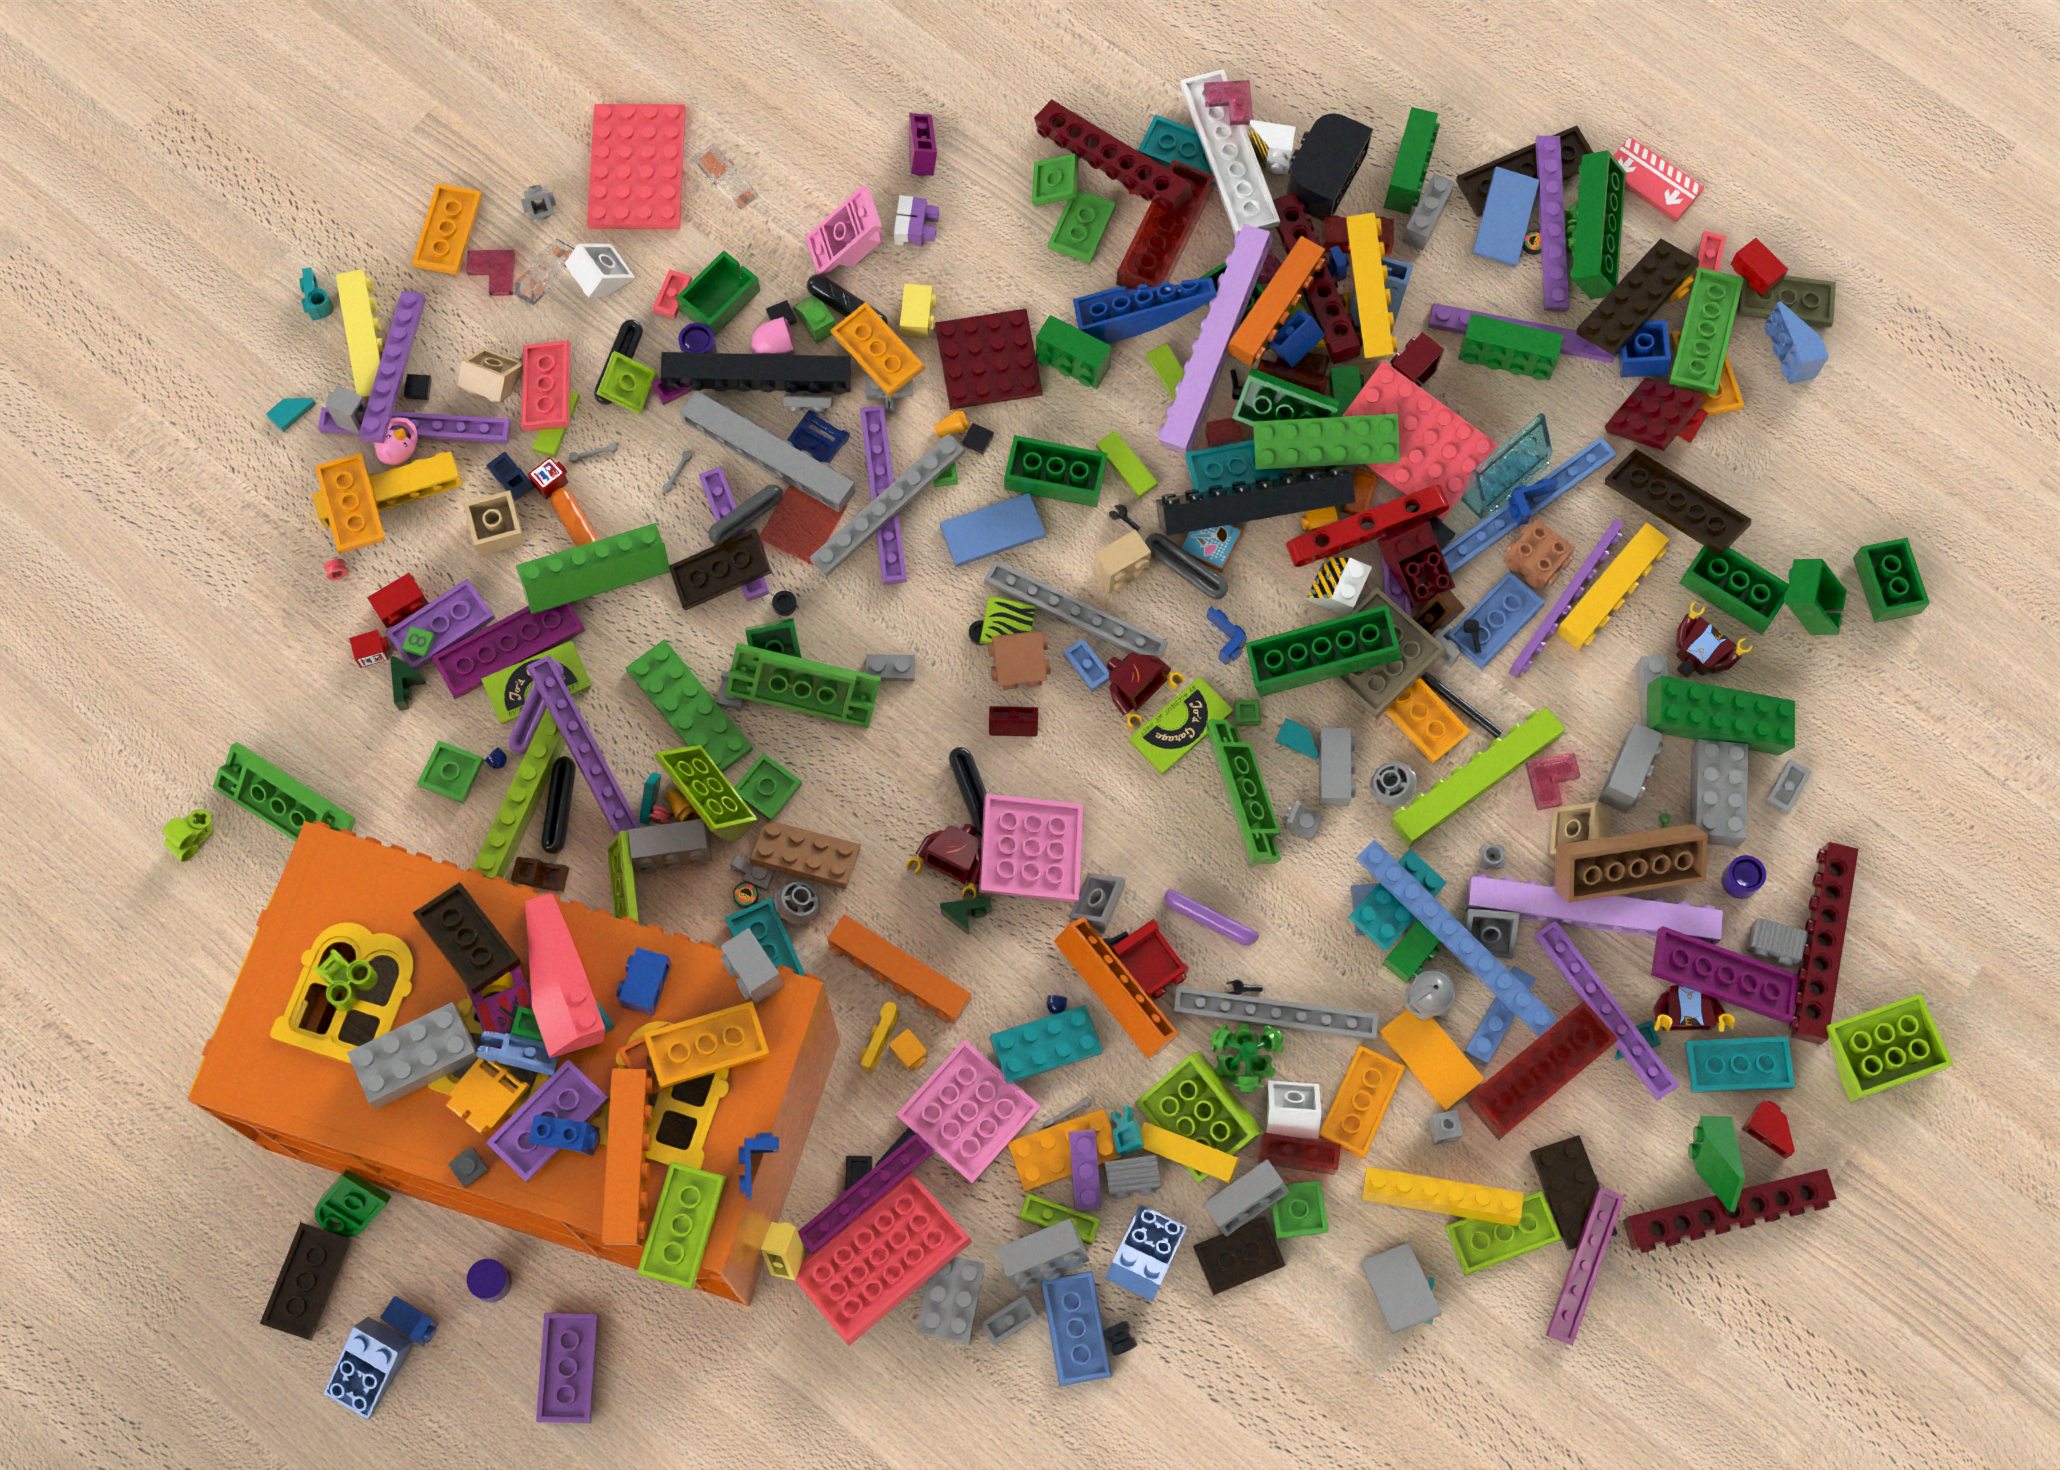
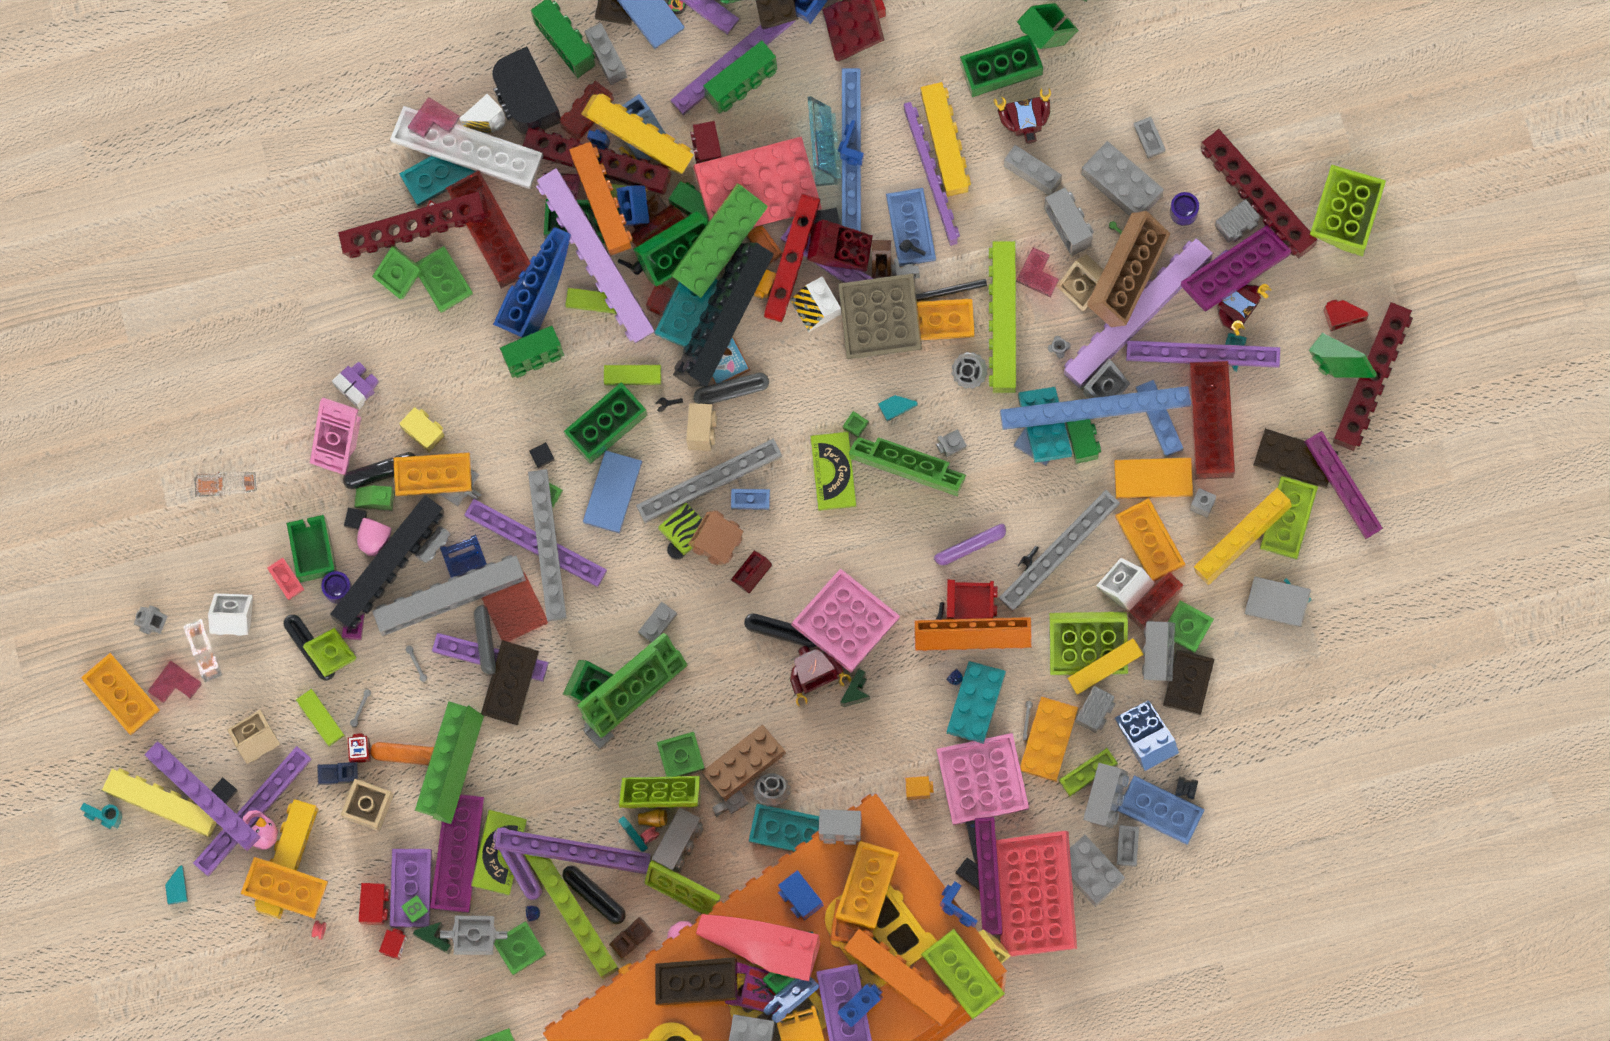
camera: 45 degrees left, 5 degrees up
(346, 409) = (216, 845): light grey brick -> none
(430, 716) = (473, 935): none -> light grey plate
(546, 385) = (289, 706): coral tile -> none
(636, 166) = (169, 537): coral plate -> none
(688, 705) = (586, 767): bright green plate -> none
(745, 895) = (742, 818): tile -> none
(784, 603) = (562, 658): black tile -> none
(880, 1036) = (895, 798): yellow hinge -> none
(899, 969) = (862, 757): orange brick -> none
(922, 144) = (302, 339): magenta slope -> none
(952, 424) = (520, 464): light orange cone -> none
(988, 359) = (490, 408): dark red plate -> none
(1084, 1169) = (1071, 734): medium lavender plate -> none
(1098, 900) = (908, 604): light grey slope -> none
(1127, 1134) = (1067, 693): teal plate -> none
(1136, 681) = (785, 476): dark red torso -> none
(1233, 648) = (798, 392): blue bracket -> none
(1248, 1049) = (1083, 584): bright green plant -> none
(1323, 651) = (856, 348): green brick -> none
(1336, 766) = (932, 396): light grey brick -> none
(1425, 1000) = (1116, 455): light grey helmet -> none
(1538, 554) = (889, 168): nougat brick -> none
(1678, 502) = (922, 57): dark brown plate -> none
(1720, 714) = (1077, 142): green brick -> none
(1739, 1064) = (1293, 302): teal plate -> none

